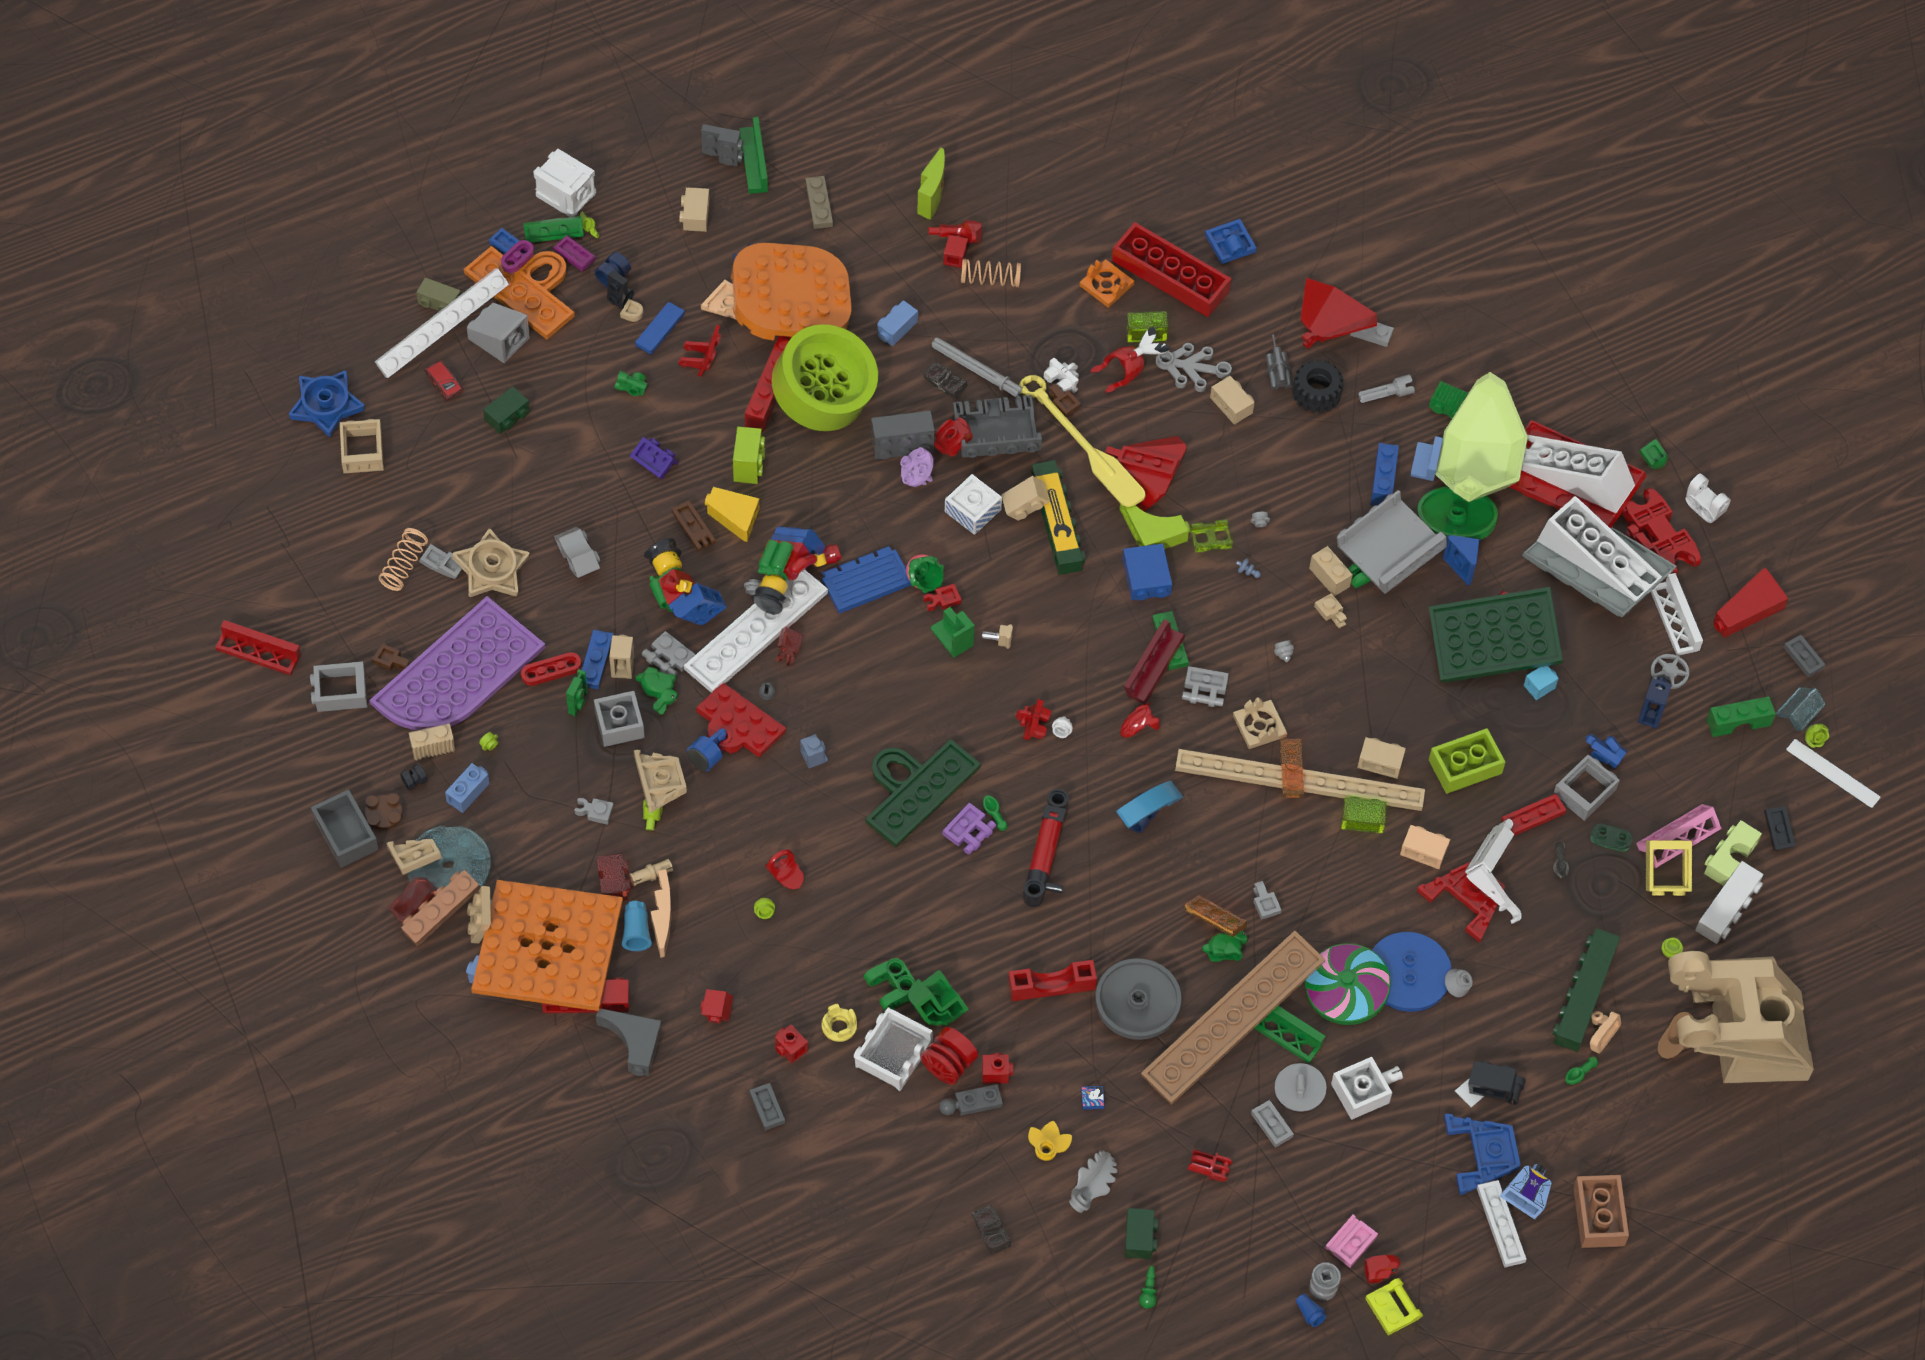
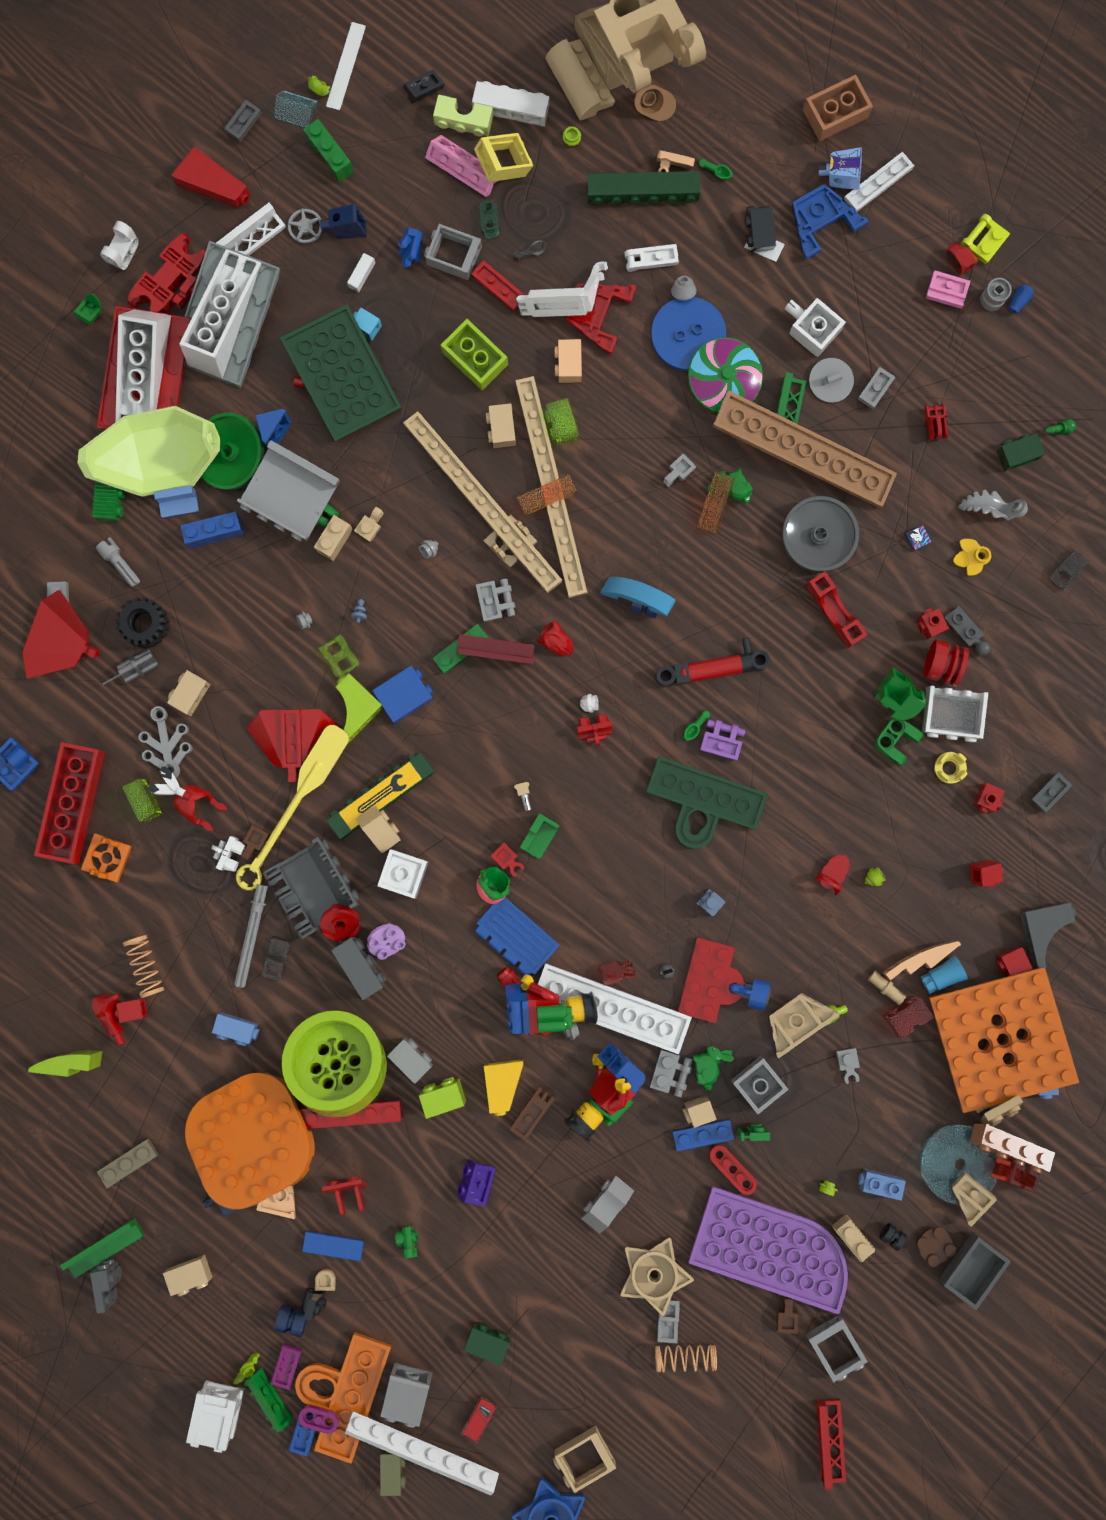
camera: 110 degrees left, 25 degrees up
(795, 447) = (410, 1059): none -> light grey brick
(1309, 710) = (482, 502): none -> tan plate
(1506, 969) = (651, 257): none -> white plate
(1598, 700) = (361, 272): none -> white piece

